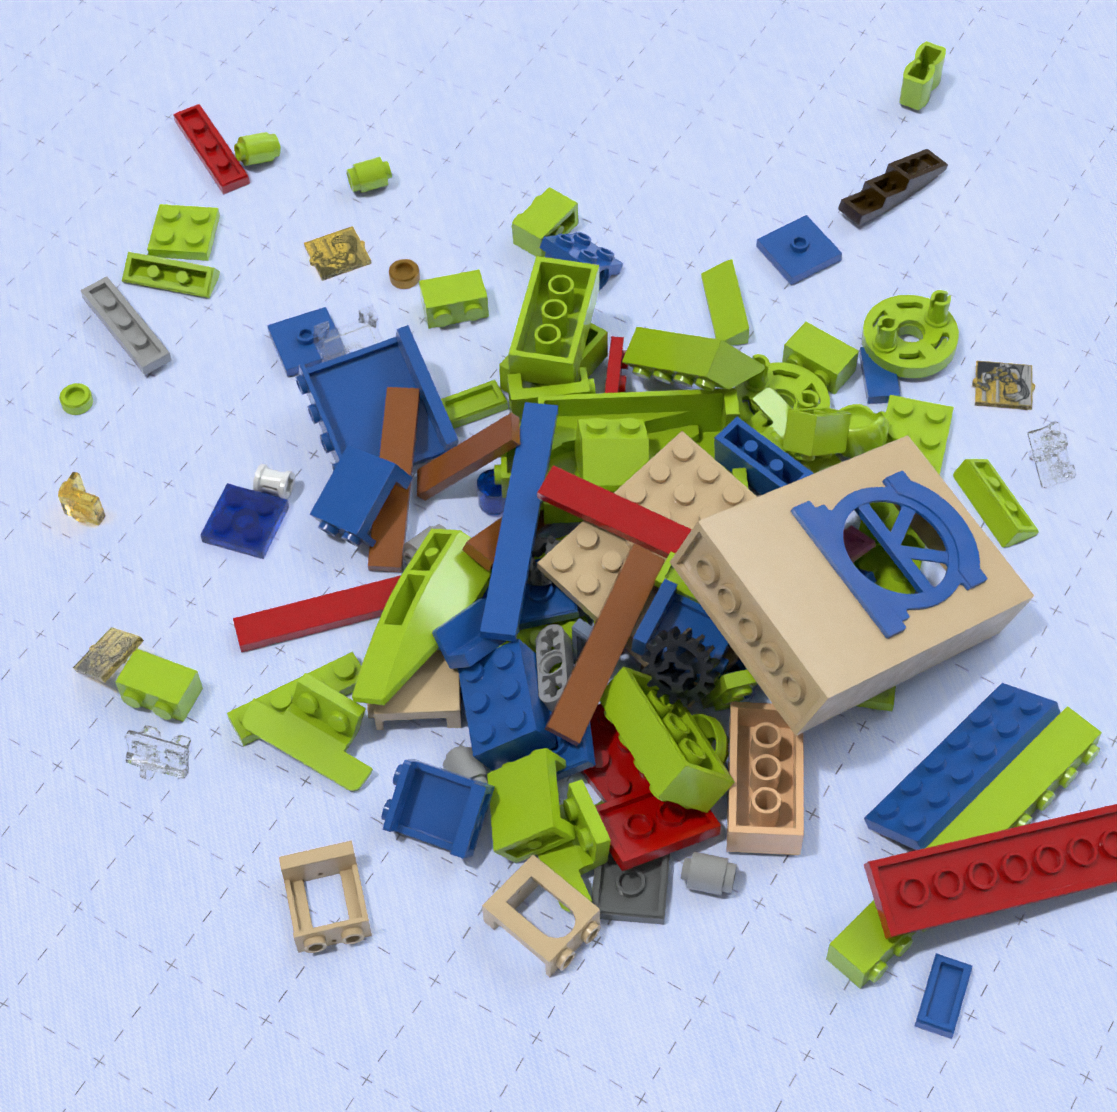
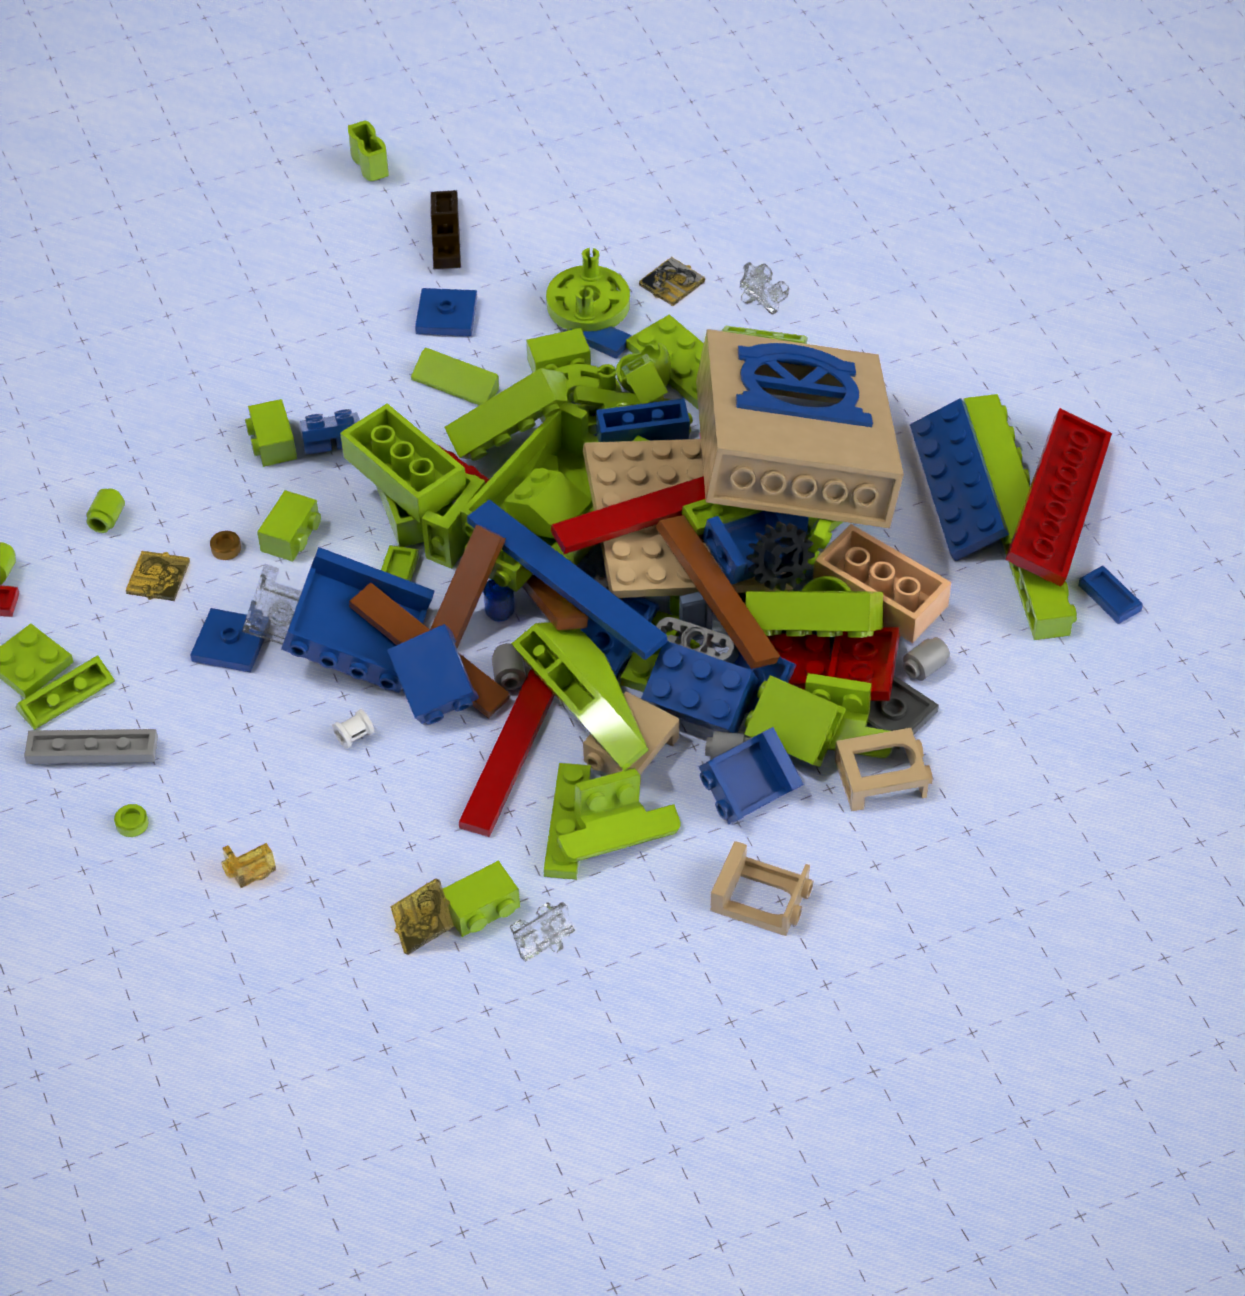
camera: 55 degrees left, 5 degrees down
(244, 521) = (369, 769): clear blue plate -> none
(461, 639) = (632, 673): blue panel -> none

